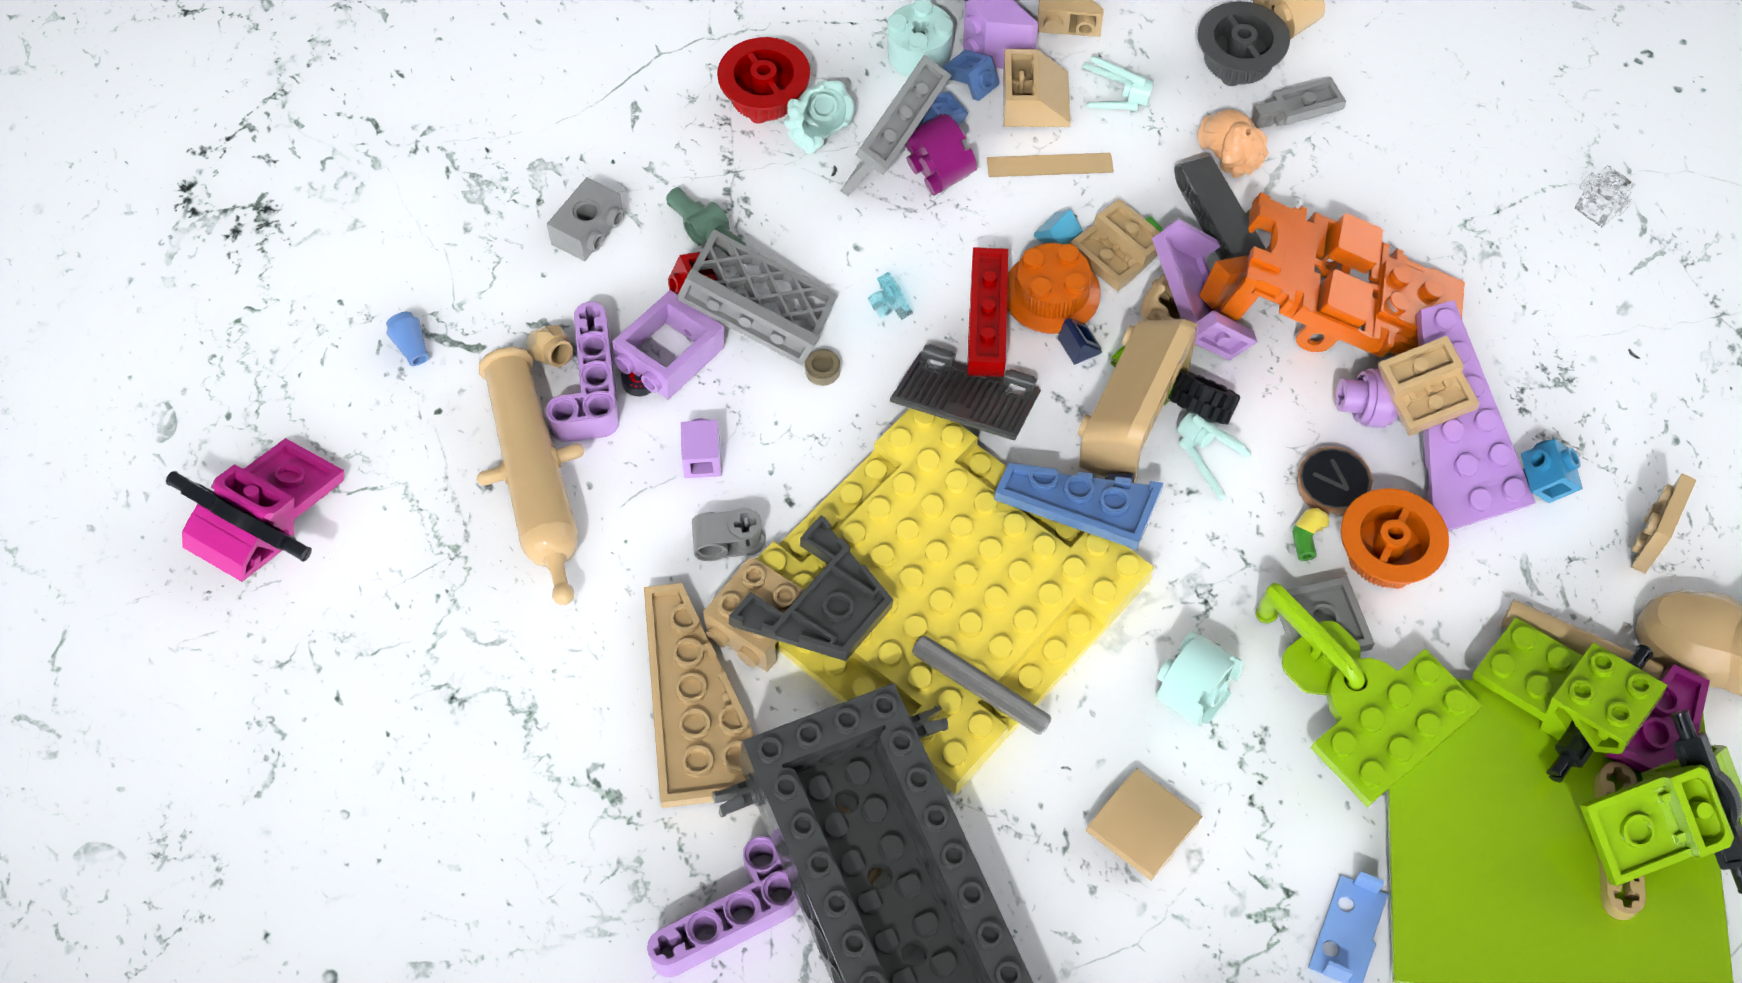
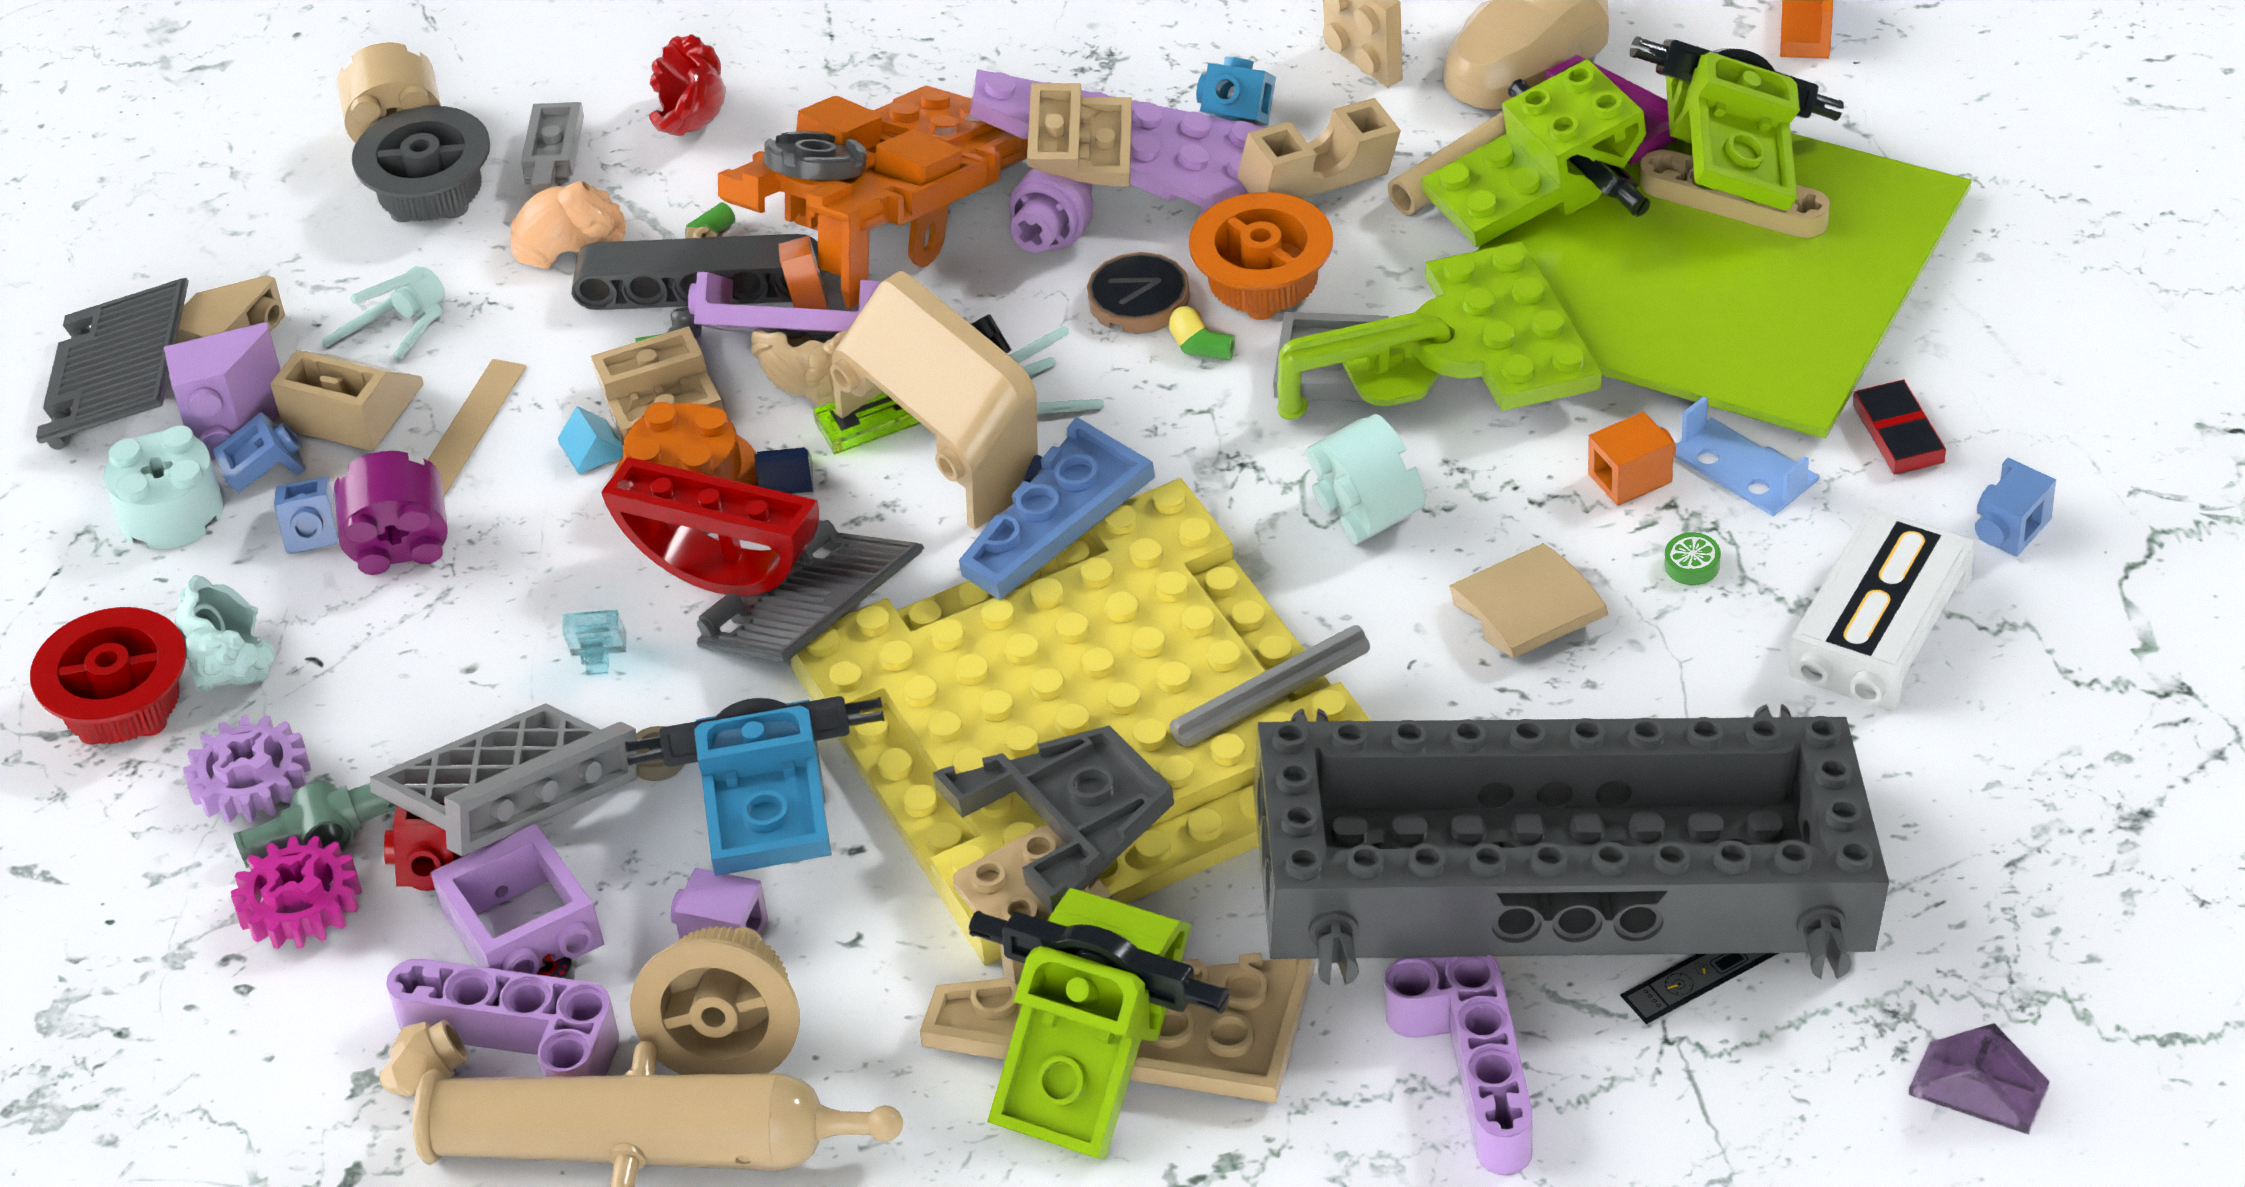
camera: 65 degrees left, 15 degrees down
(585, 219) = (215, 962): light grey brick -> none
(618, 470) = (716, 1004): none -> tan piece
(648, 235) = (296, 892): none -> dark pink gear
(667, 670) = (1088, 997): none -> lime piece
(723, 534) = (880, 916): light grey piece -> none
(729, 173) = (247, 769): none -> lavender gear
(806, 419) = (760, 775): none -> dark azure piece
(898, 121) = (334, 516): light grey fence -> none
(1235, 922) = (1692, 558): none -> bright green tile
(1302, 238) = (814, 156): none -> dark grey tile
(1309, 850) = (1631, 458): none -> orange brick
(1387, 154) = (686, 86): none -> red hair
(1527, 560) = (1349, 151): none -> tan arch

